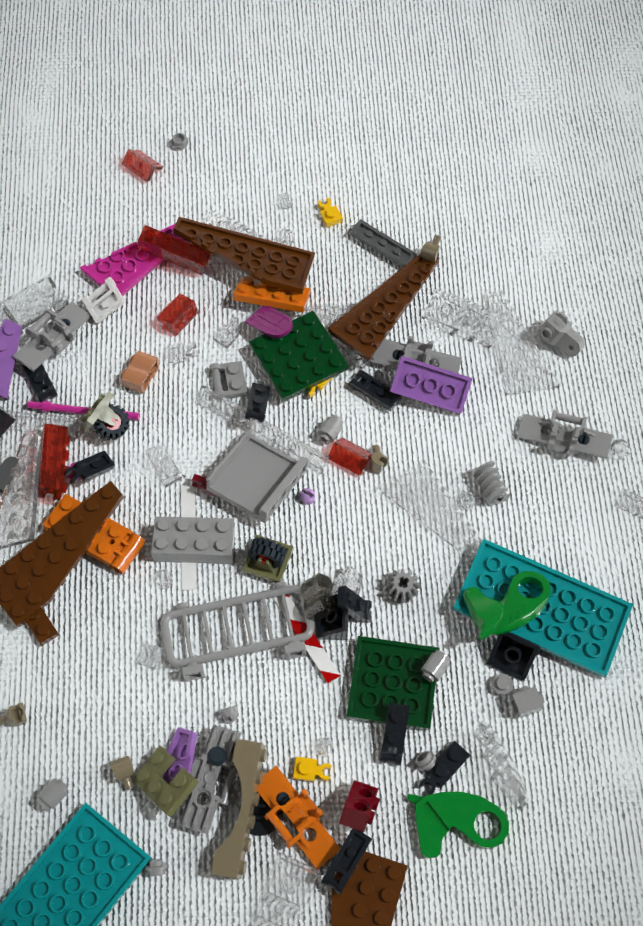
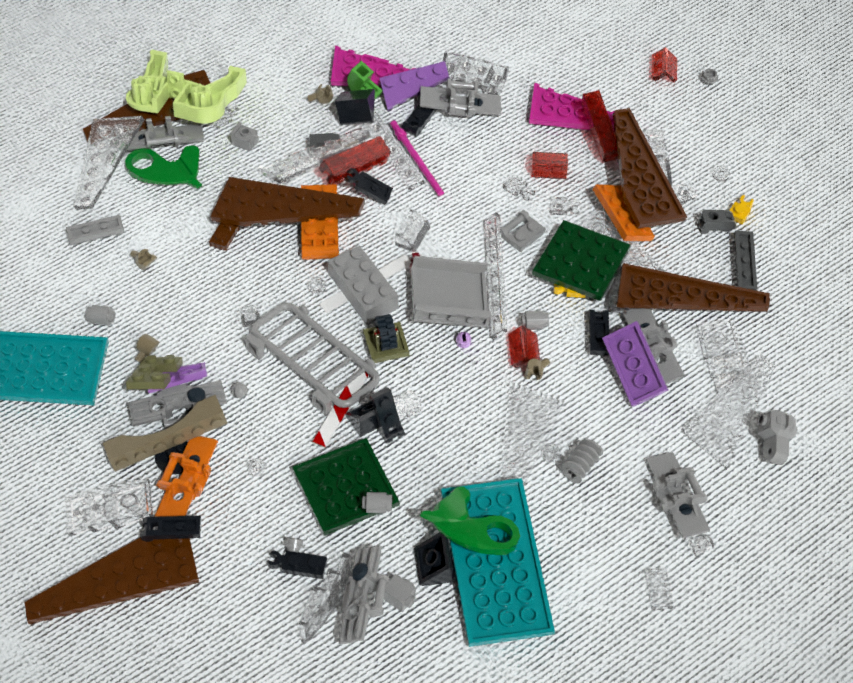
camera: 55 degrees right, 10 degrees down
(105, 304) = (518, 112): white plate -> none
(107, 420) = (416, 168): plate -> none
(140, 371) = (478, 171): nougat brick -> none
(156, 867) = (87, 409): light grey plate -> none
(257, 402) = (514, 256): black plate -> none
(270, 322) = (593, 223): magenta window -> none
(307, 769) = (232, 468): yellow plate -> none
(318, 597) = (377, 383): clear smoke brick -> none
(329, 236) = (716, 220): none -> dark grey leg
(359, 806) = (221, 512): dark red brick -> none
(395, 732) = (301, 508): black plate -> none
(400, 592) = (435, 446): light grey gear -> none
(431, 249) = (768, 293): dark tan piece -> none
(445, 810) = (268, 592): green animal -> none
(502, 684) = (403, 567): light grey plate -> none
(514, 739) = (362, 581): none -> light grey piece

